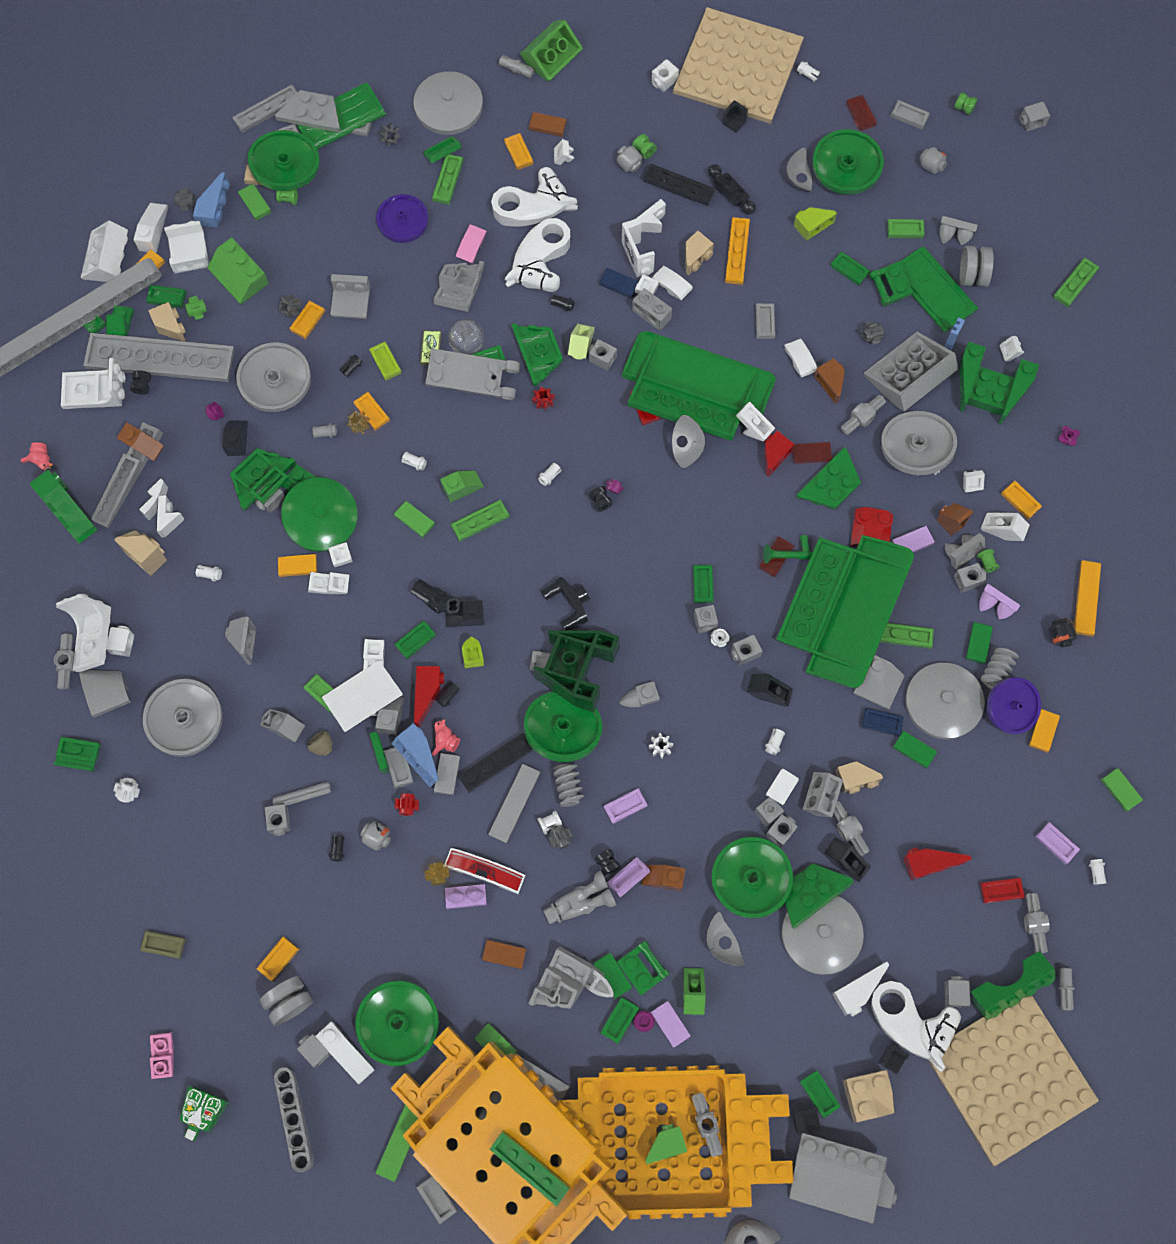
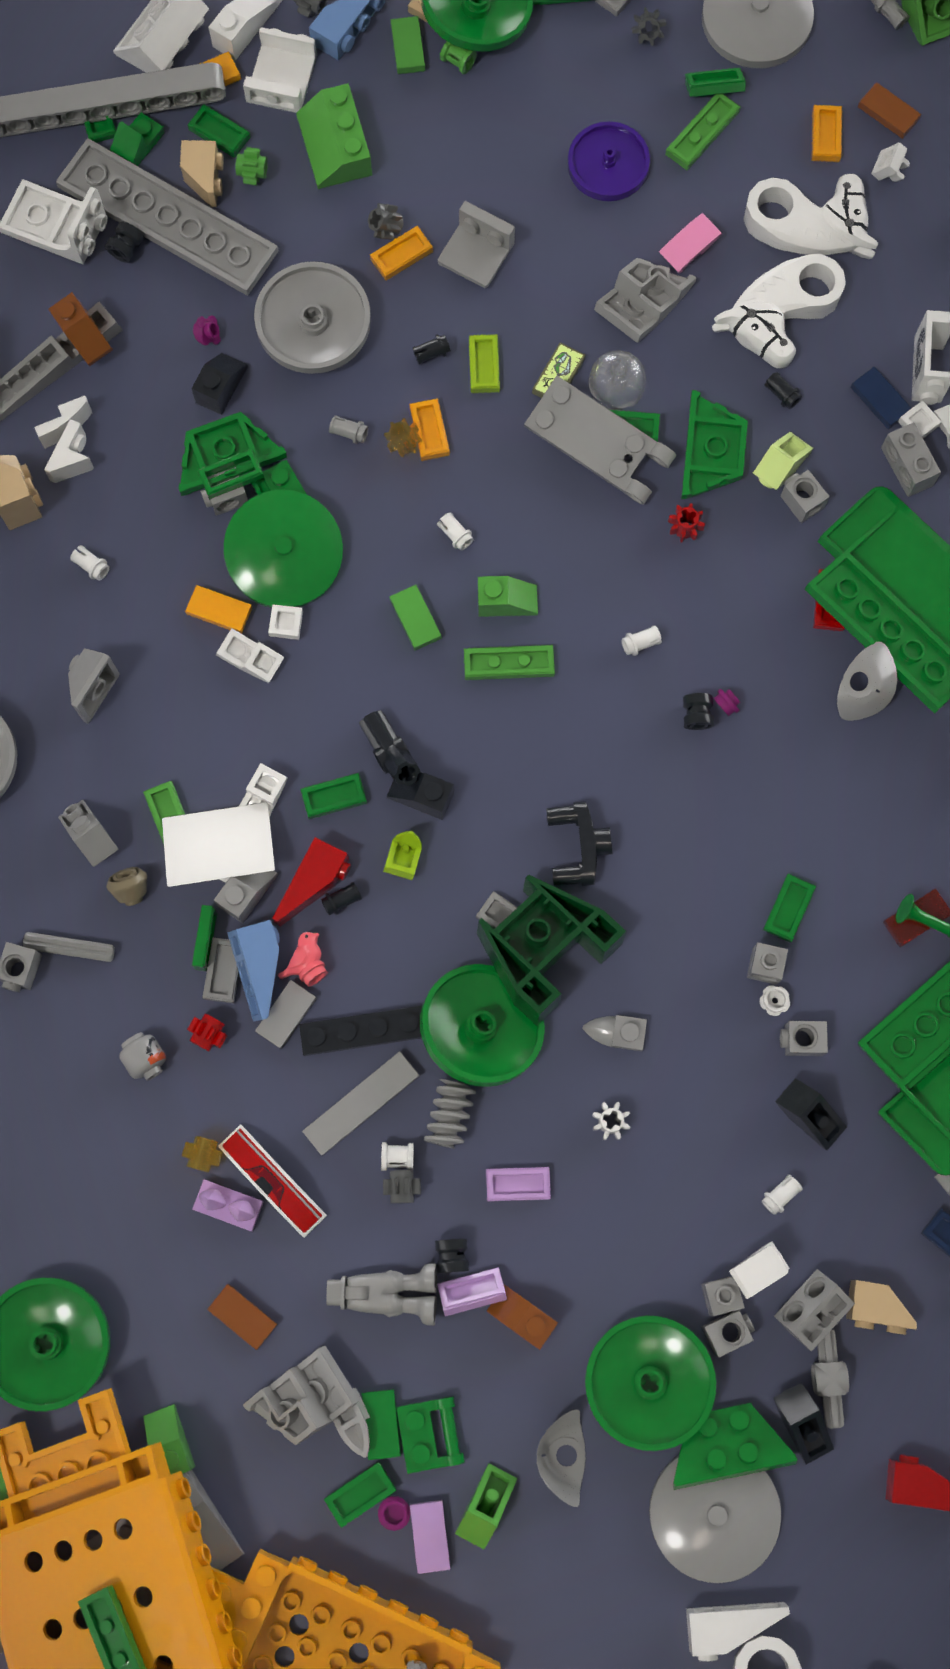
camera: 25 degrees right, 5 degrees up
(337, 848) = (81, 1048): black pin -> none

